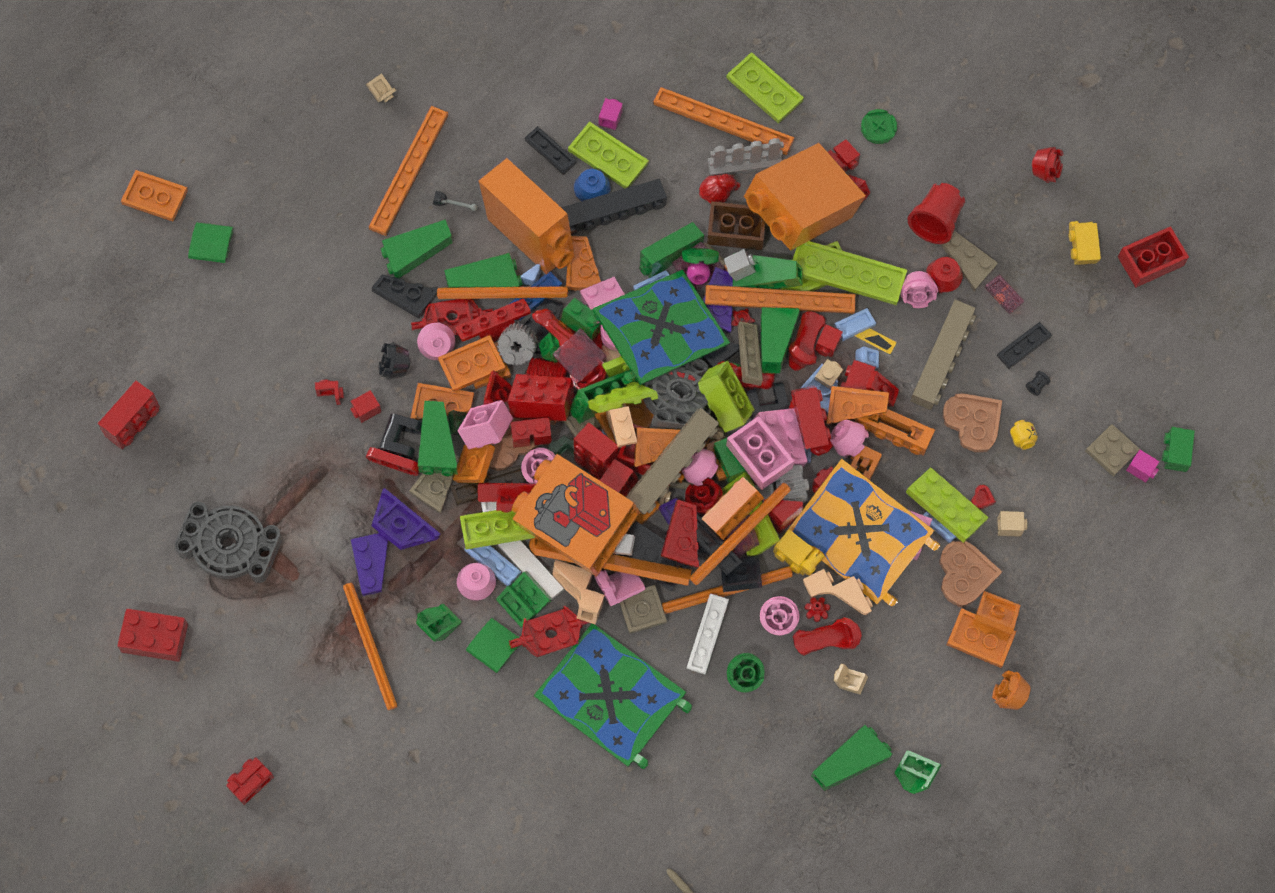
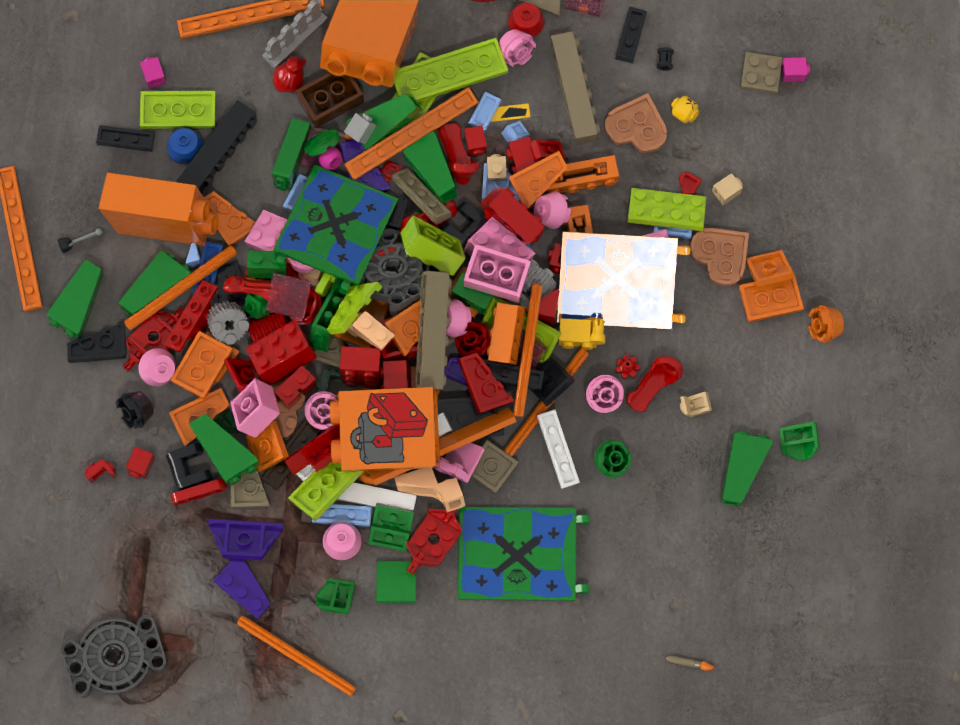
camera: 35 degrees left, 5 degrees up
(847, 591) = (642, 335): light nougat arch -> none
(1178, 449) = (811, 36): green brick -> none

